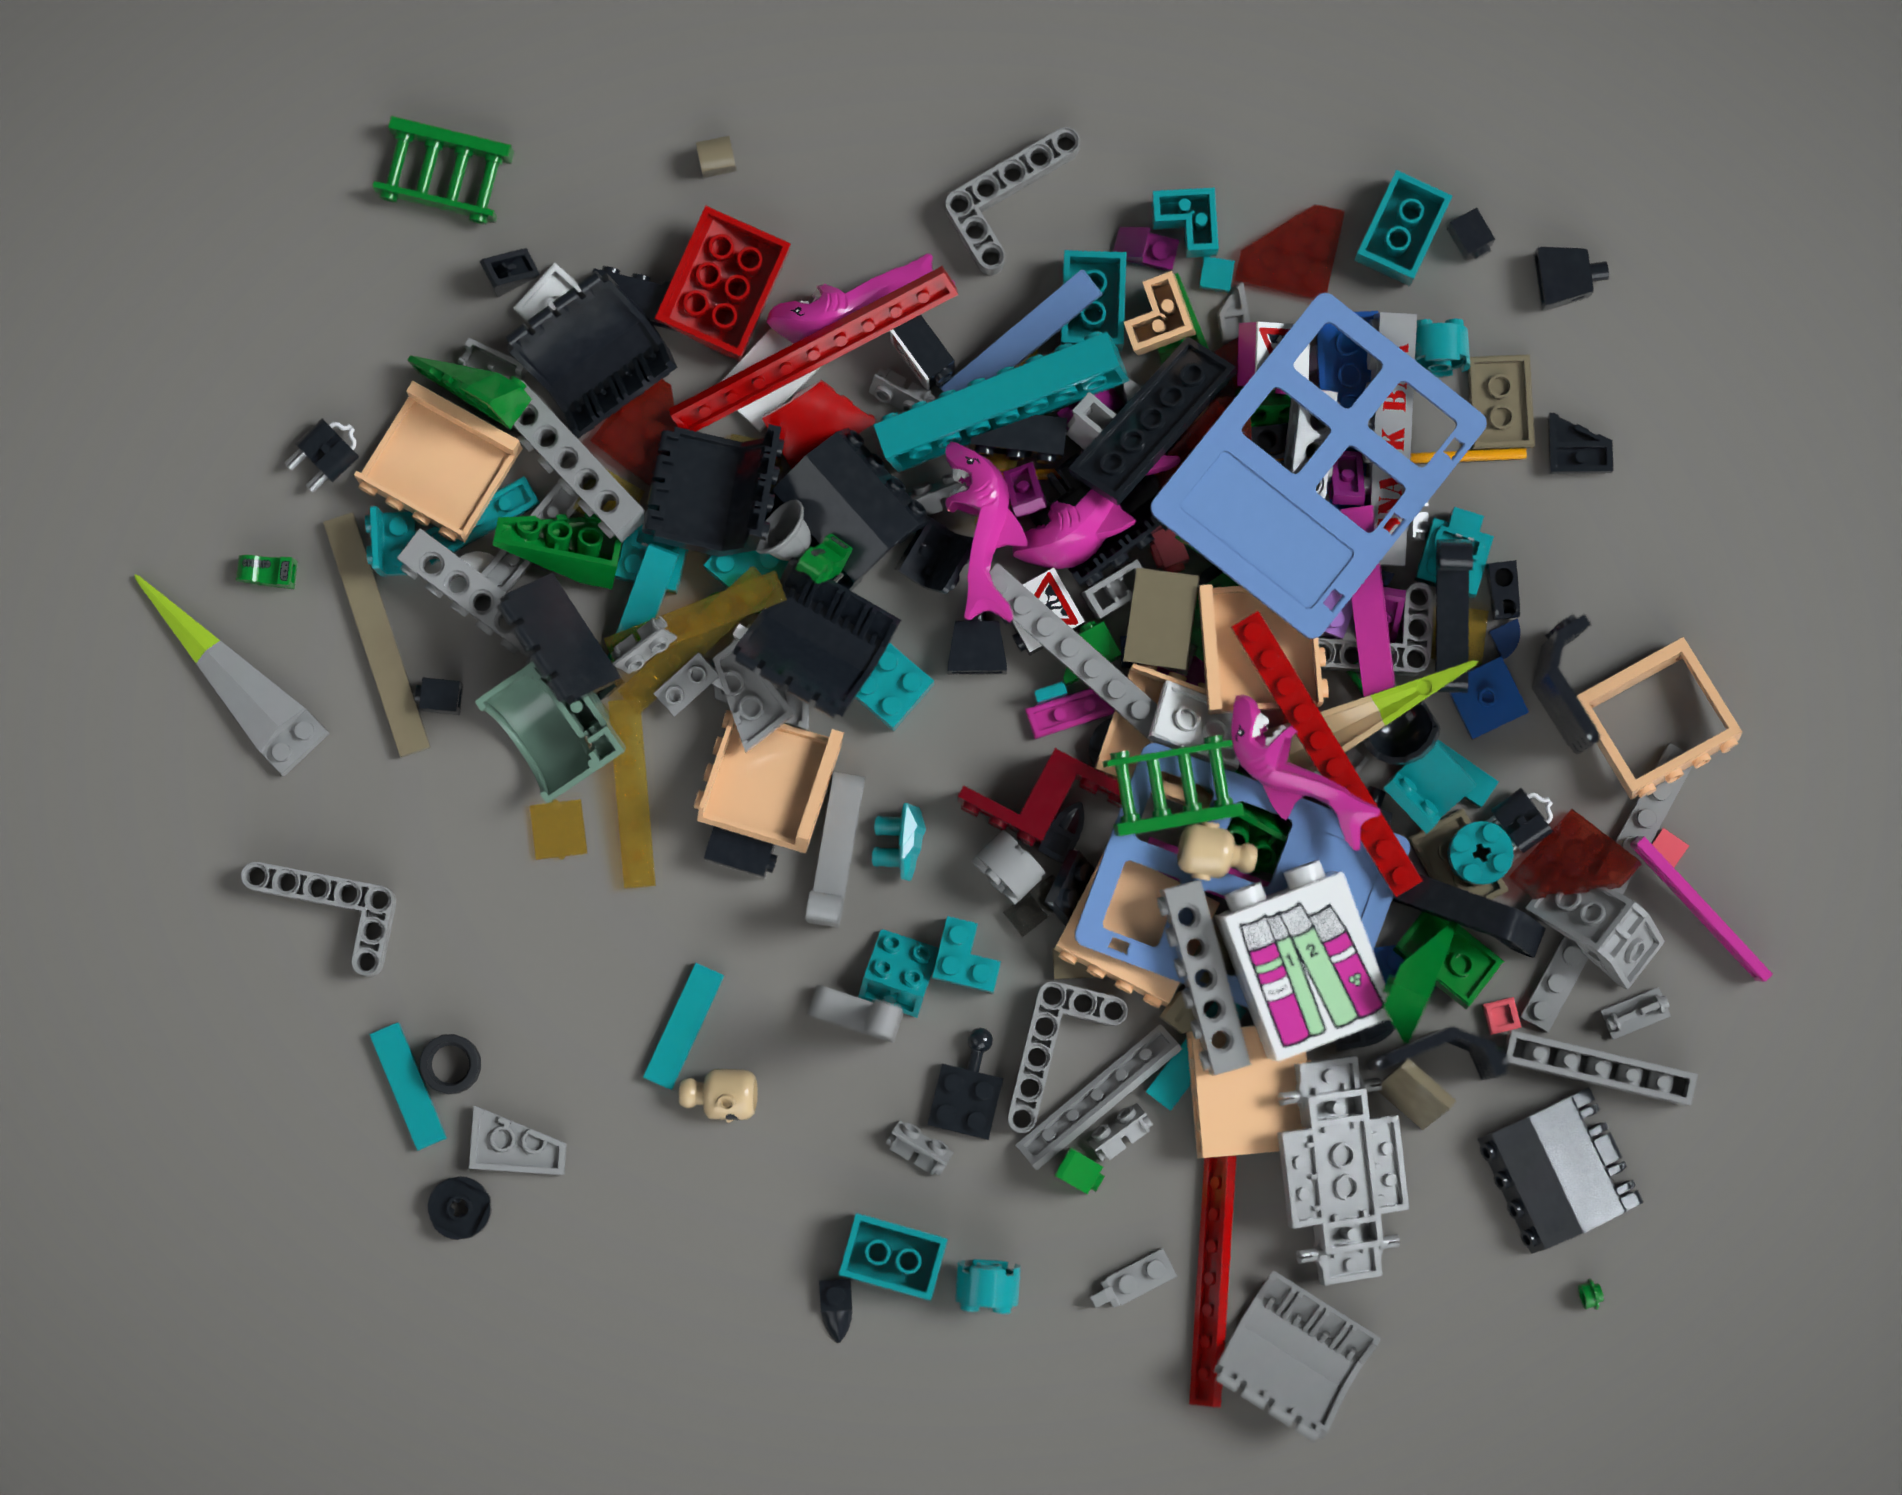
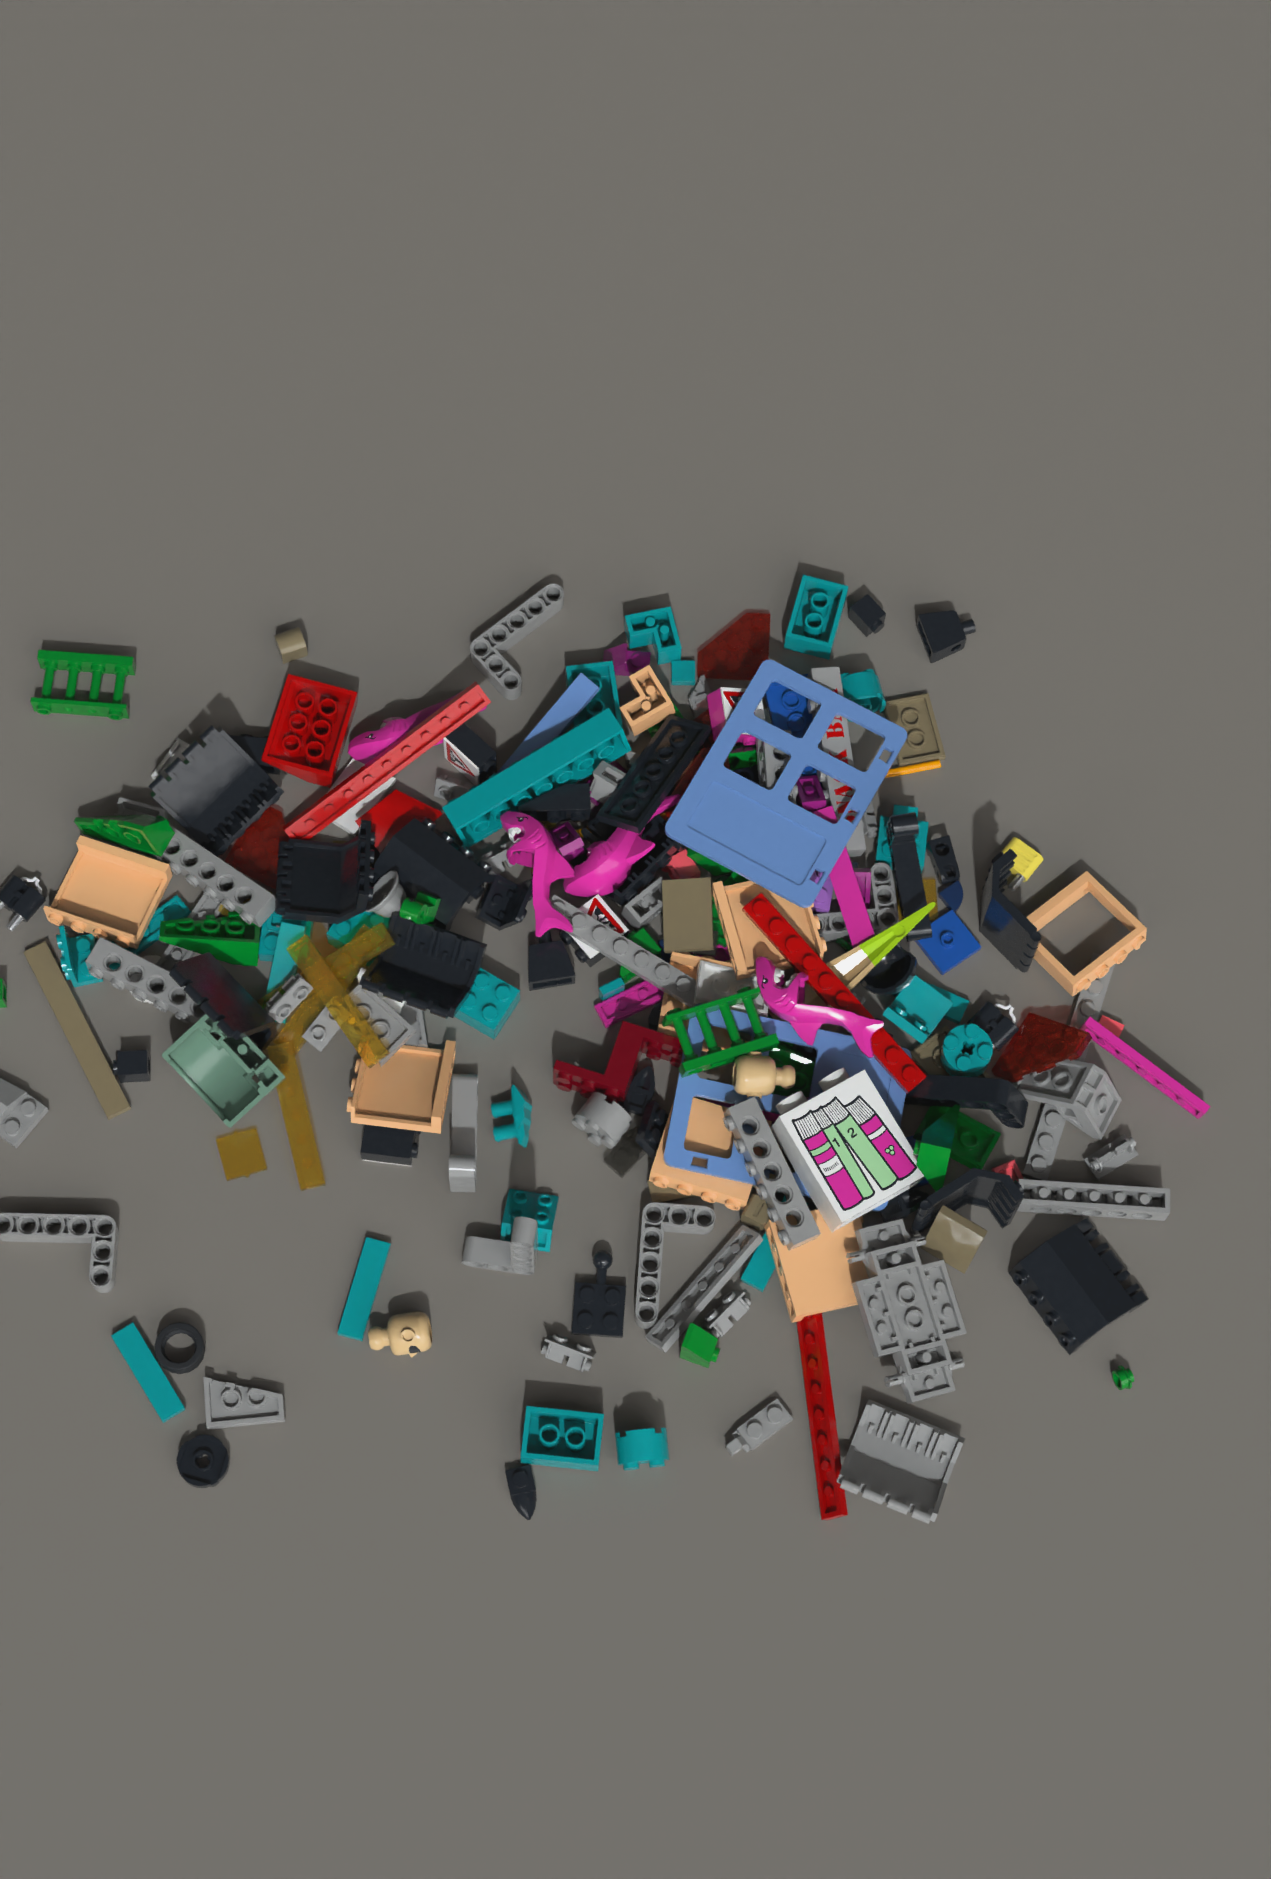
camera: 15 degrees left, 15 degrees down
(509, 270) = (143, 748): black slope -> none
(703, 662) = (338, 1001): none -> clear yellow tile
(957, 964) = (576, 1204): teal brick -> none
(1577, 449) = (977, 753): black wing -> none
(1600, 603) = (1025, 862): none -> light yellow piece

